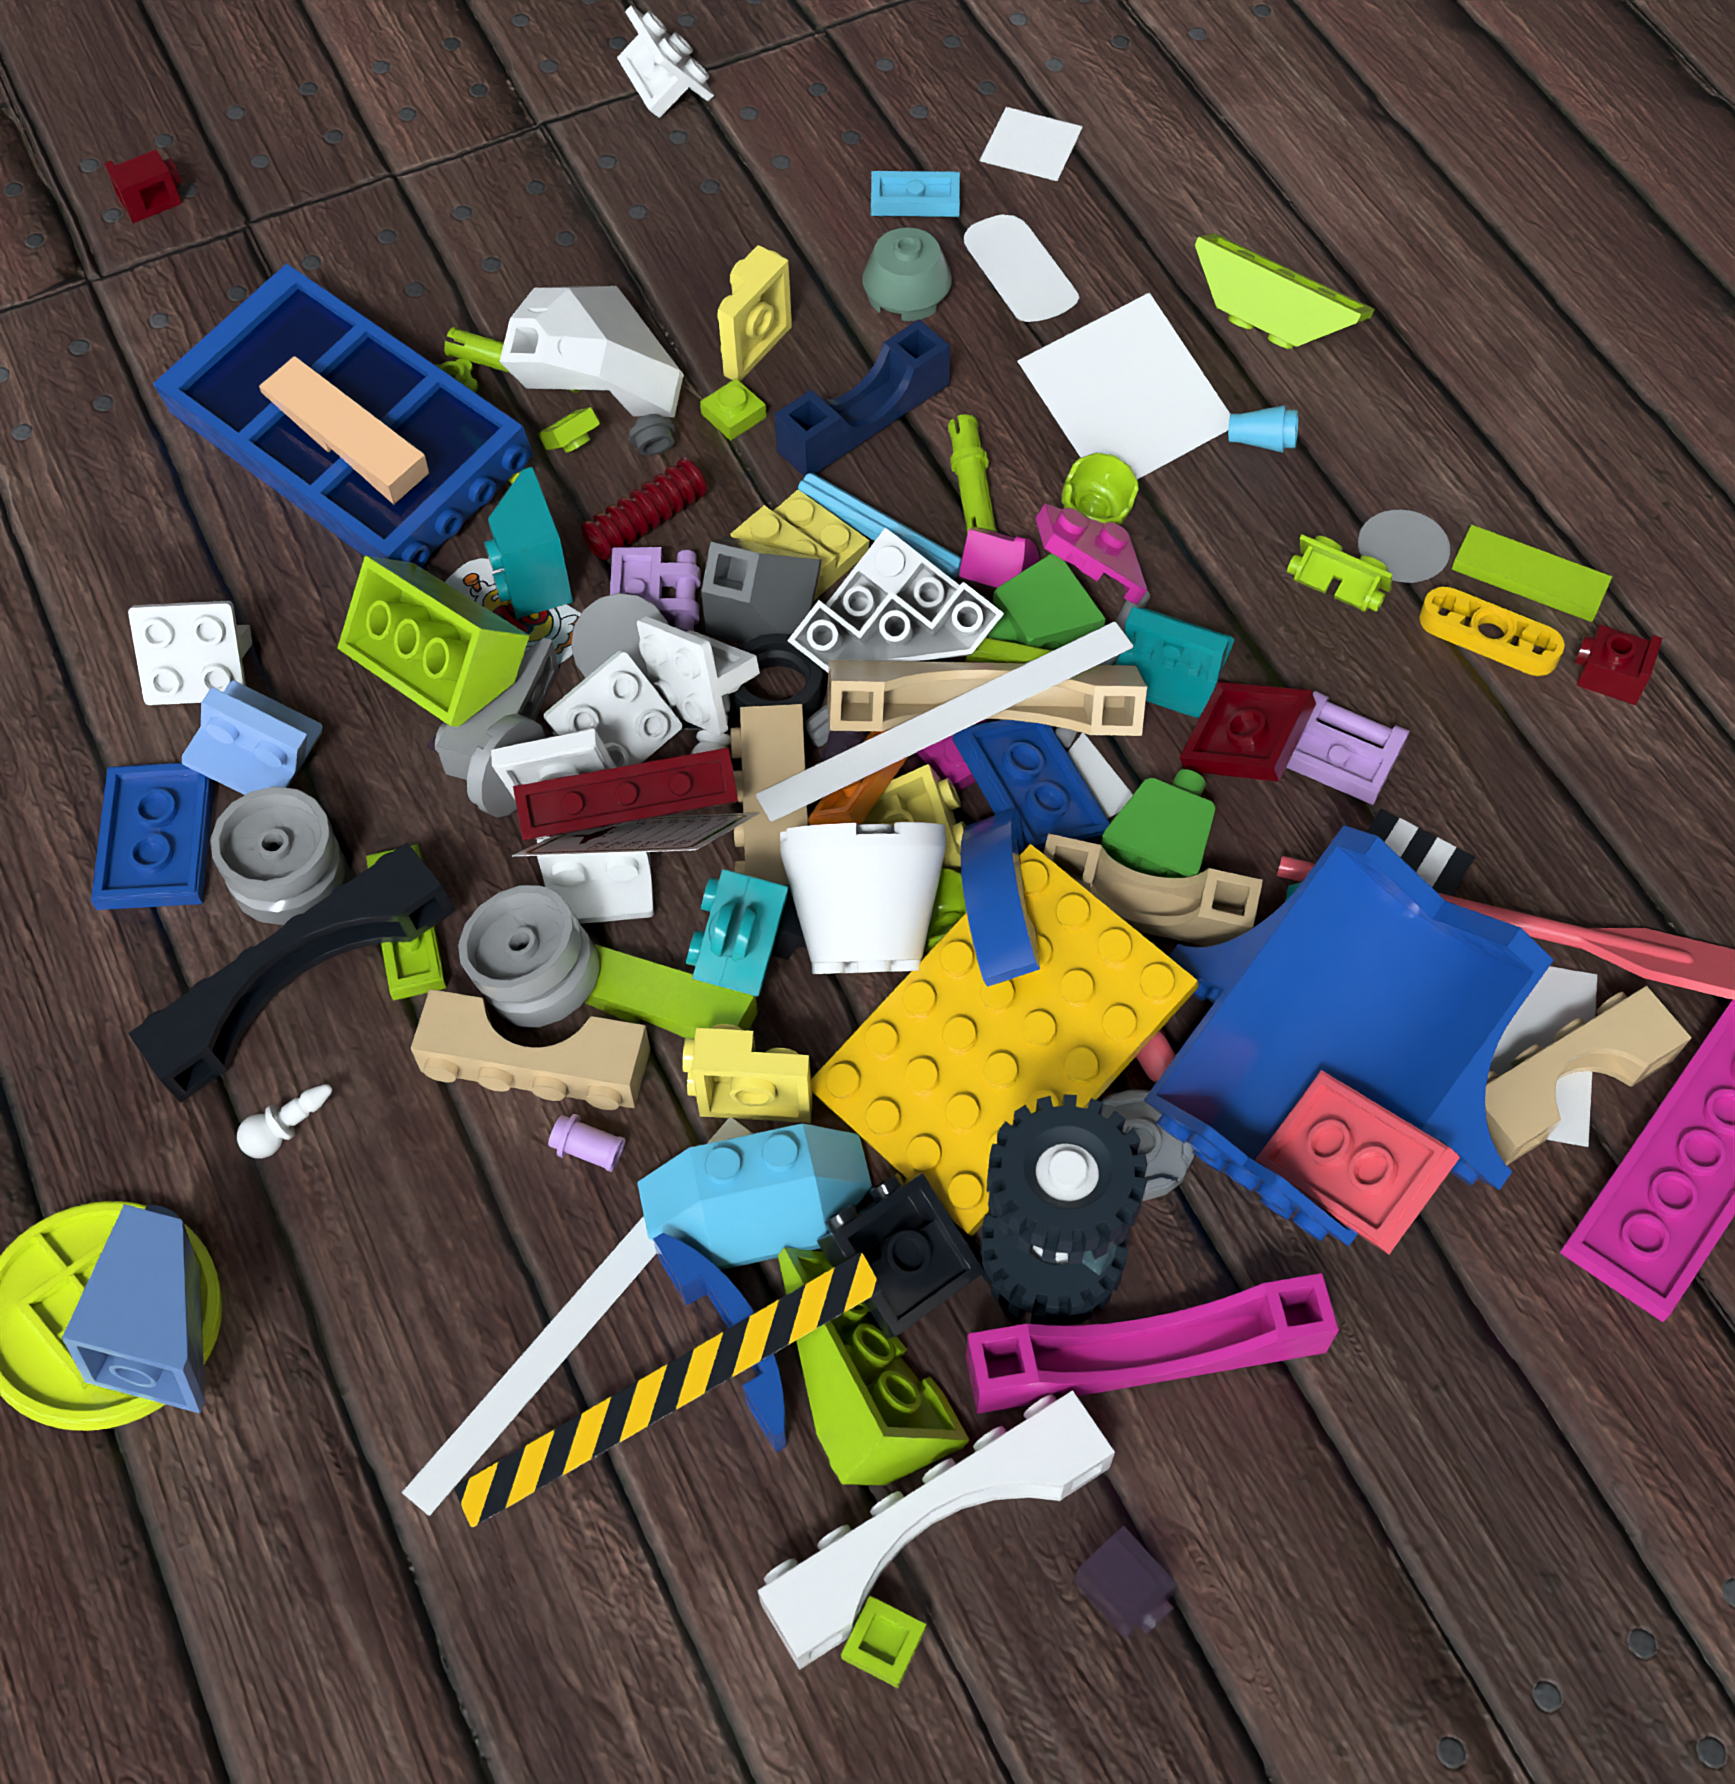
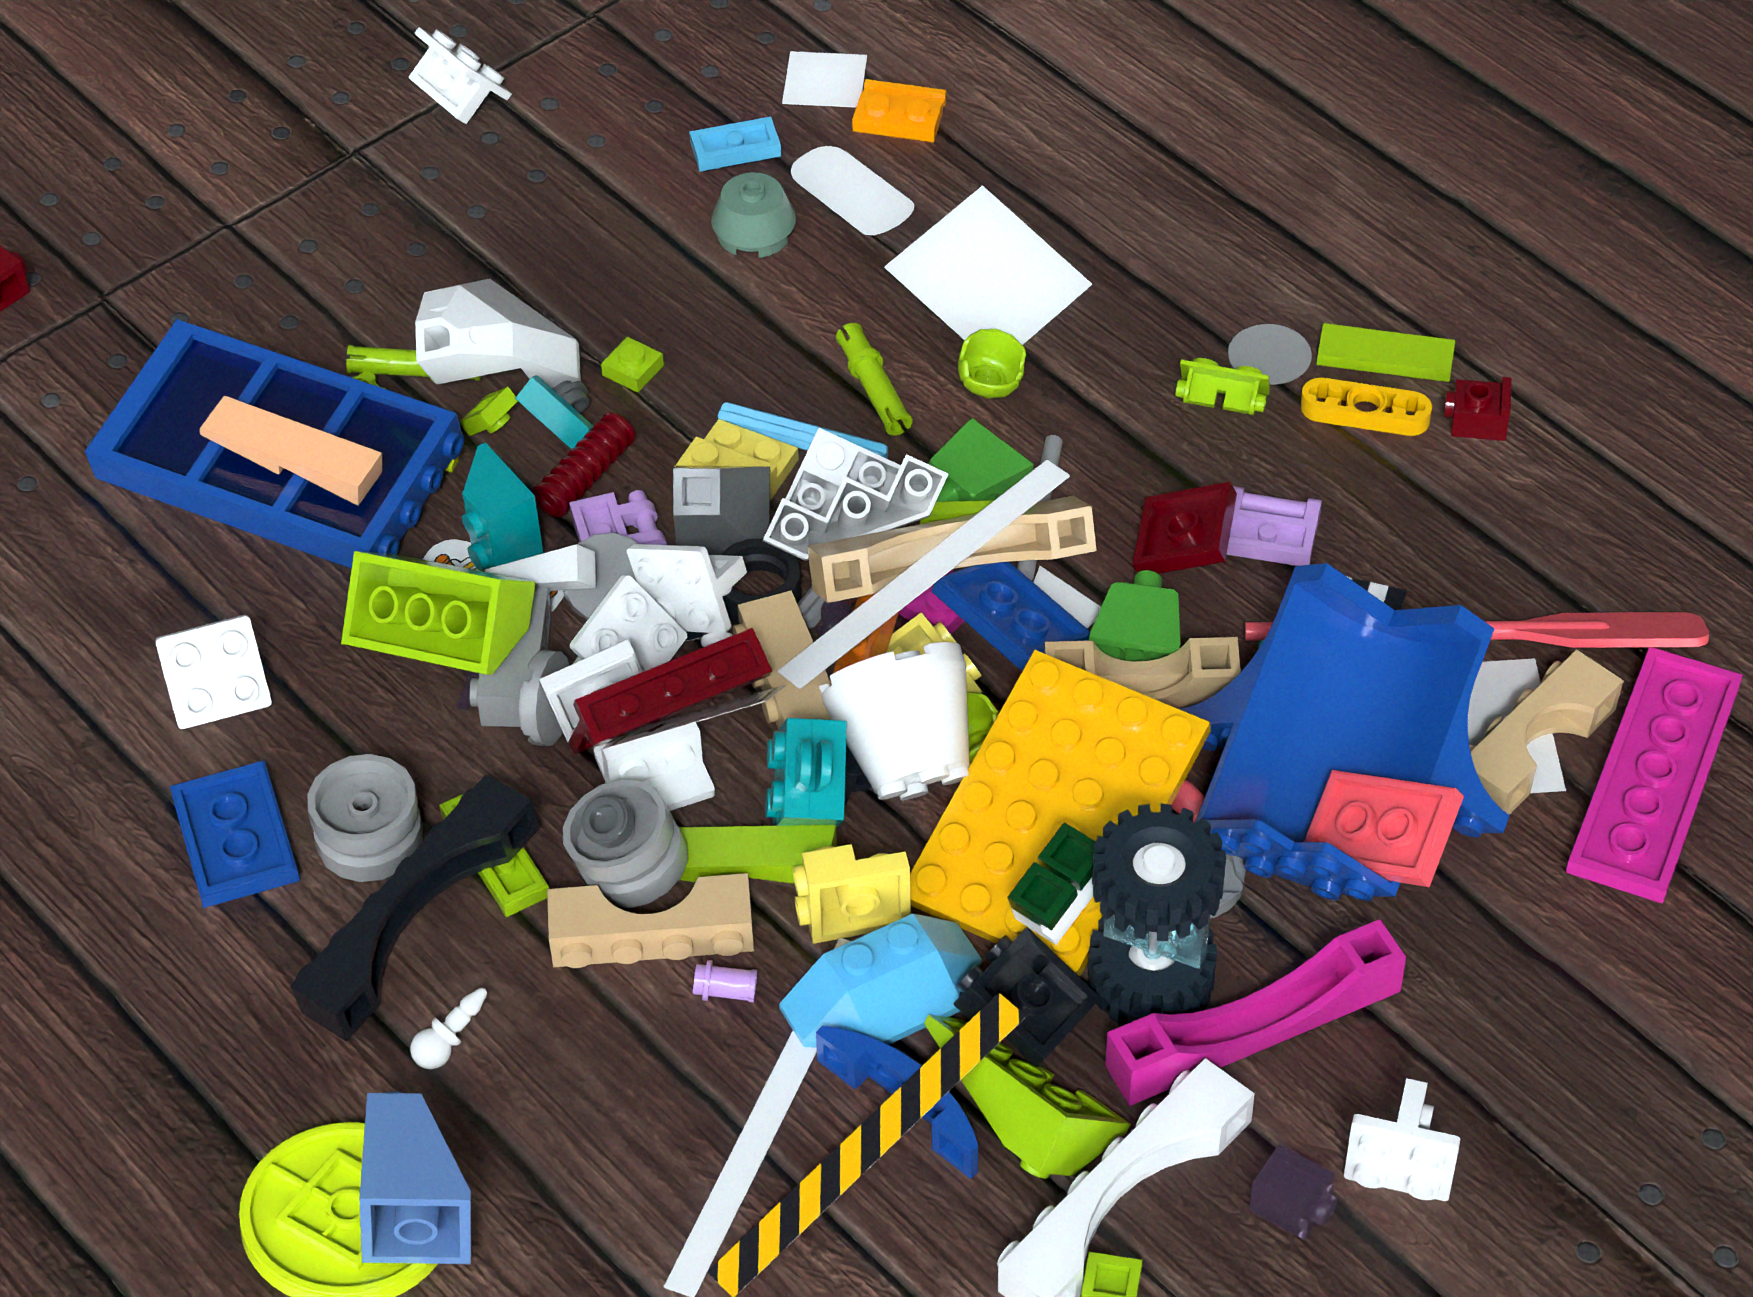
camera: 15 degrees left, 10 degrees down
(249, 740) = (298, 733): light blue bracket -> none
(508, 932) = (608, 821): none -> dark grey tile
(563, 623) = (558, 569): none -> white piece
(630, 443) = (553, 411): none -> teal piece
(755, 312) = (628, 273): light yellow plate -> none
(906, 373) = (784, 299): dark blue arch -> none
(959, 1152) = (1057, 887): none -> dark green hips
(995, 557) = (917, 436): dark pink tile -> none
(995, 898) = (1022, 698): blue slope -> none
(1092, 547) = (1001, 409): dark pink wing -> none
(1095, 192) = (899, 110): none -> light orange plate
(1175, 659) = (1108, 482): teal bracket -> none
(1265, 428) = (1119, 281): medium azure cone -> none
(1267, 1579) = (1403, 1152): none -> white bracket
(1272, 295) = (1092, 167): wedge -> none

